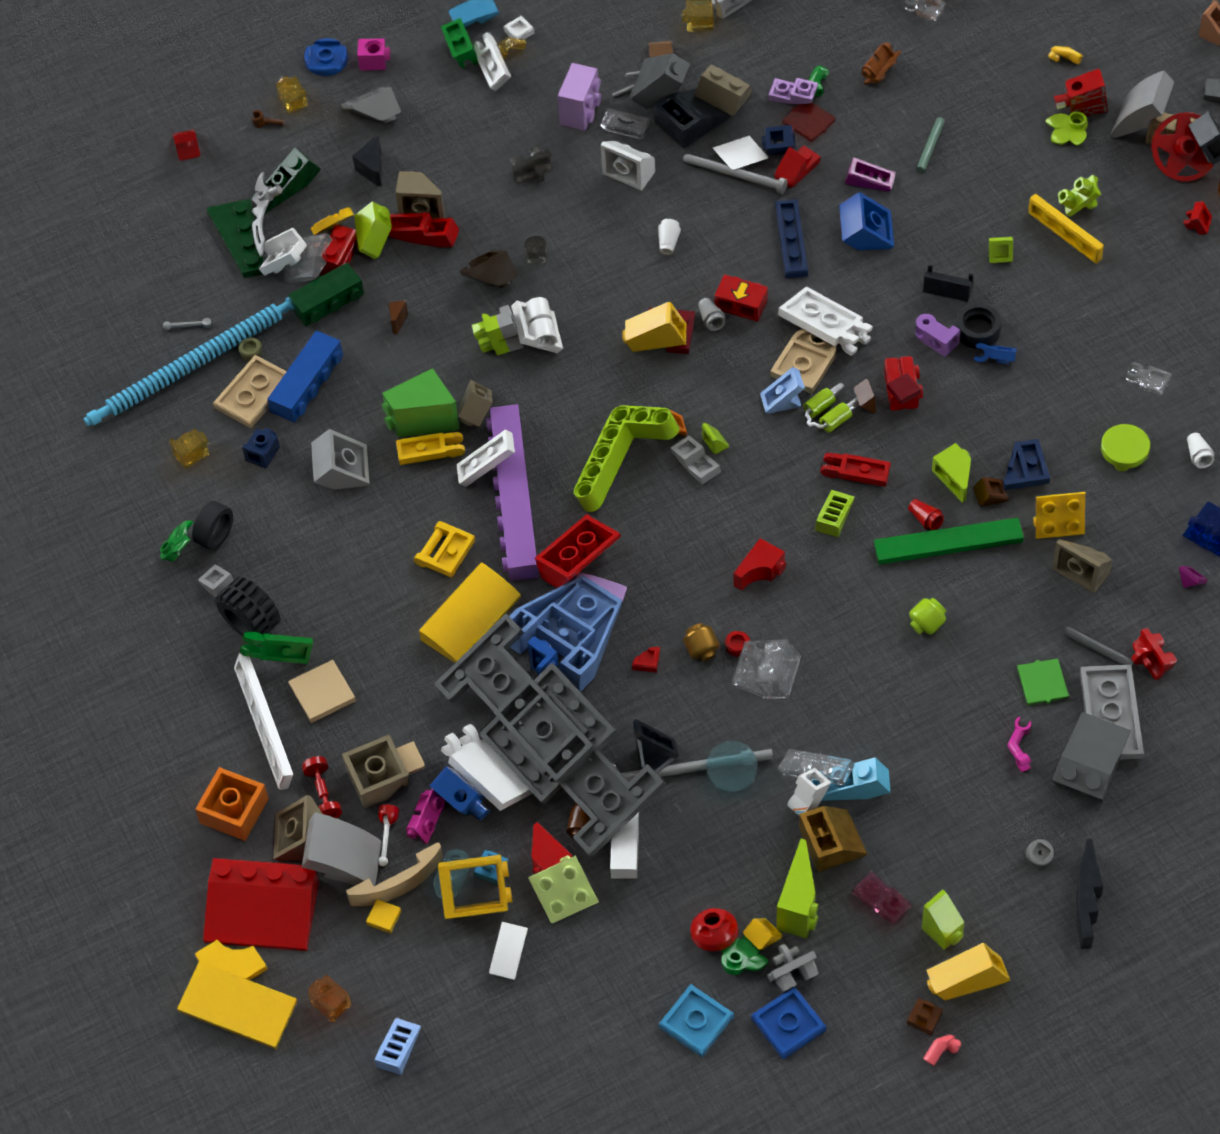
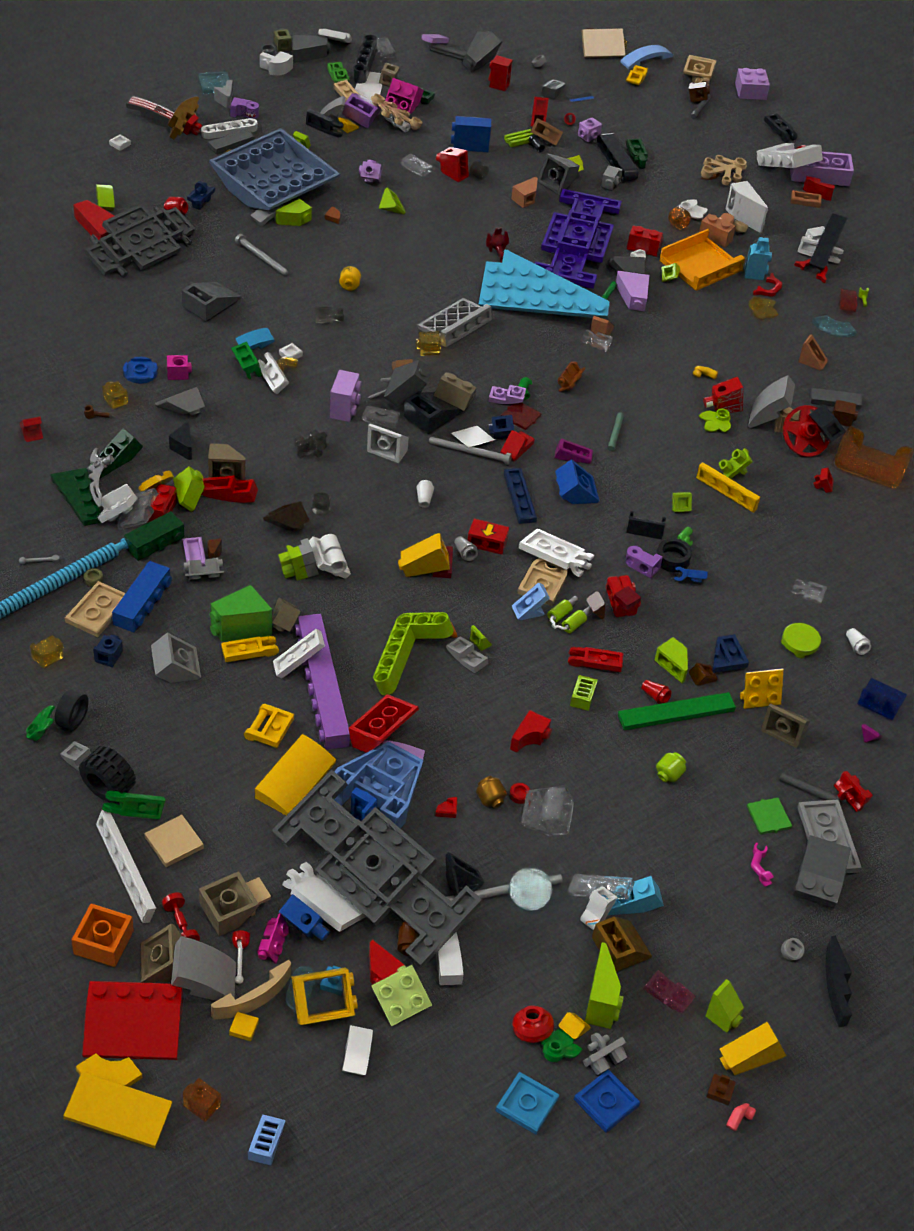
camera: 15 degrees left, 10 degrees down
(374, 317) = (194, 549): none -> lavender tile
(391, 340) = (211, 568): none -> light grey hinge
(996, 298) = (684, 535): none -> bright green arm

